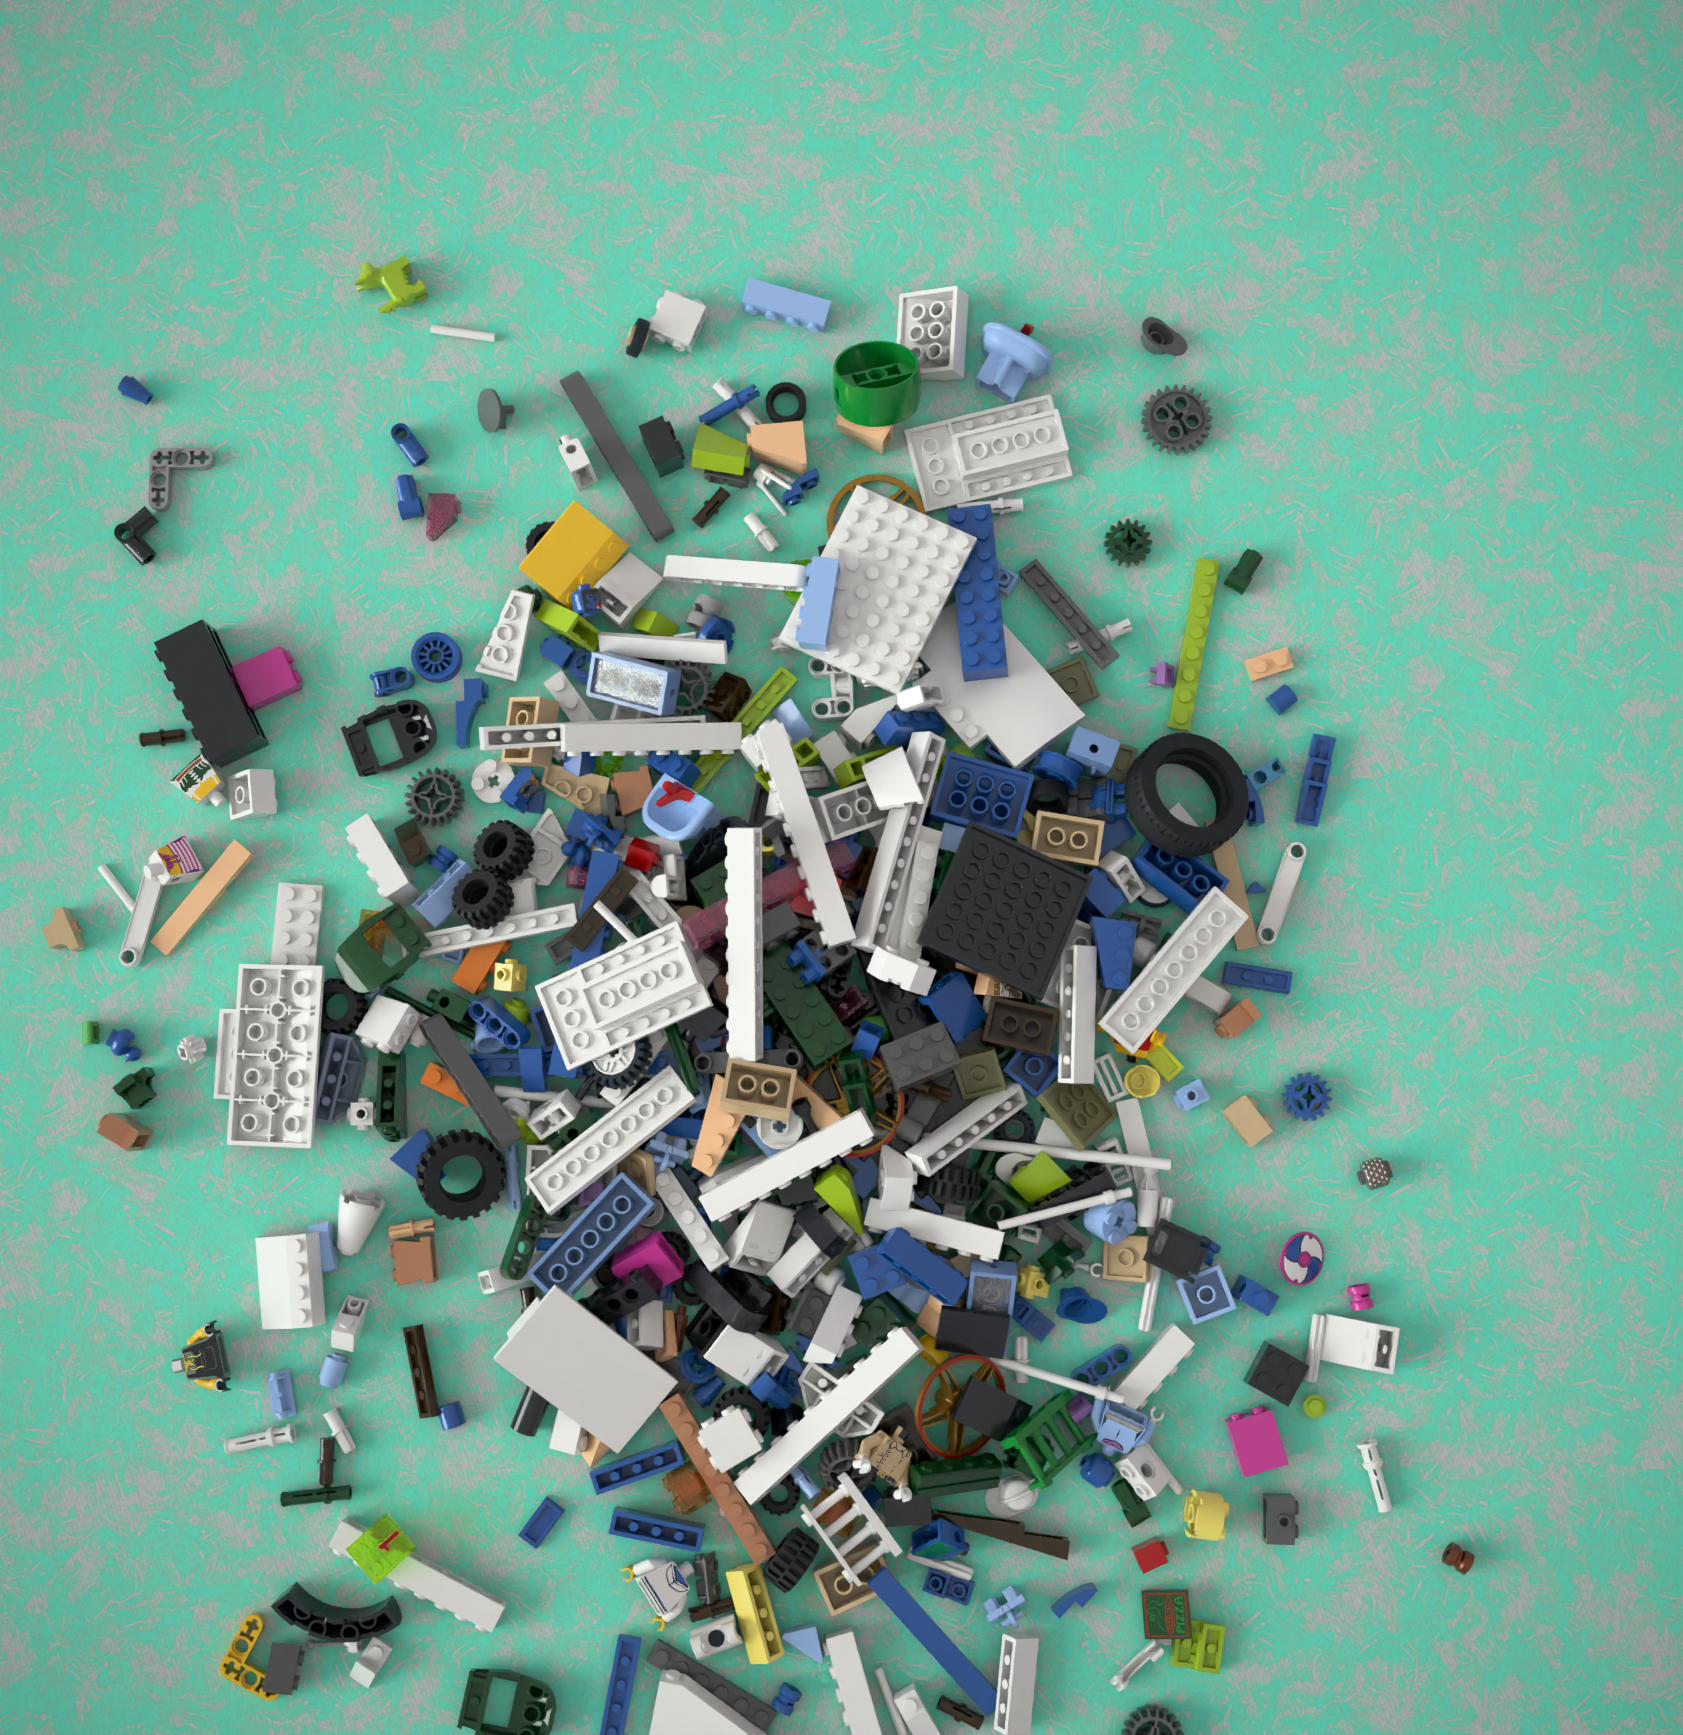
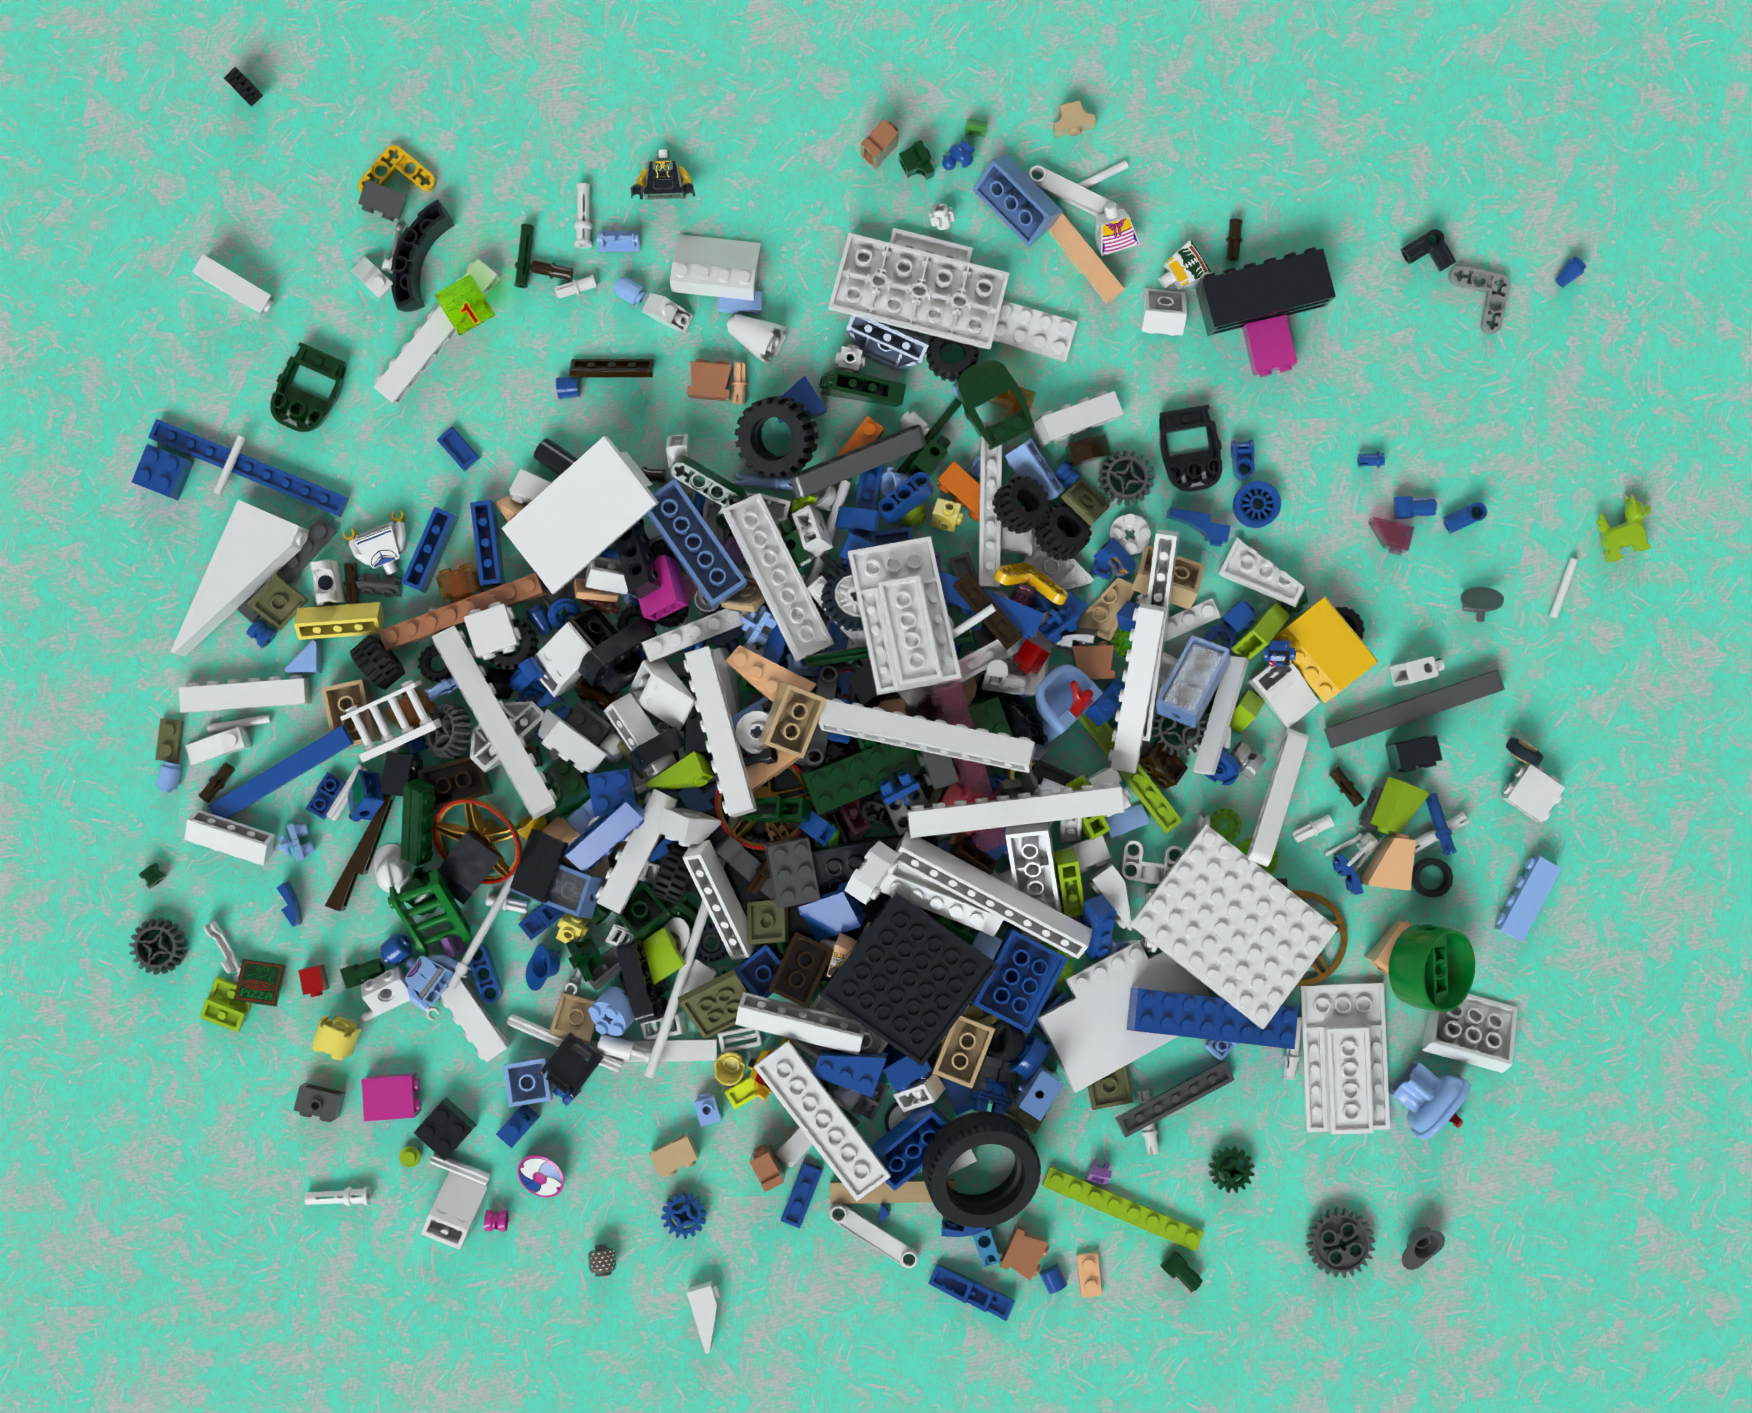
camera: 95 degrees right, 5 degrees up
(160, 972) = (1017, 200): none -> medium blue slope
(367, 550) = (1375, 459): none -> blue pin
(387, 1024) = (925, 396): white brick -> none
(467, 834) = (1085, 501): none -> olive plate
(555, 878) = (1025, 572): none -> yellow beam
(748, 1688) = (277, 601): none -> olive plate
(775, 612) = (1234, 825): none -> clear neon green gear
(819, 603) = (1230, 869): light blue brick -> none
(887, 1459) = (443, 766): tan torso -> none
(892, 780) = (1049, 902): white slope -> none
(920, 697) = (1123, 944): white brick -> none
(1108, 1197) = (630, 1013): white bar -> none
(1261, 734) = (1024, 1252): none -> nougat hips
(1396, 1054) = (704, 1305): none -> white slope
(1458, 1558) = (248, 1255): copper wheel -> none

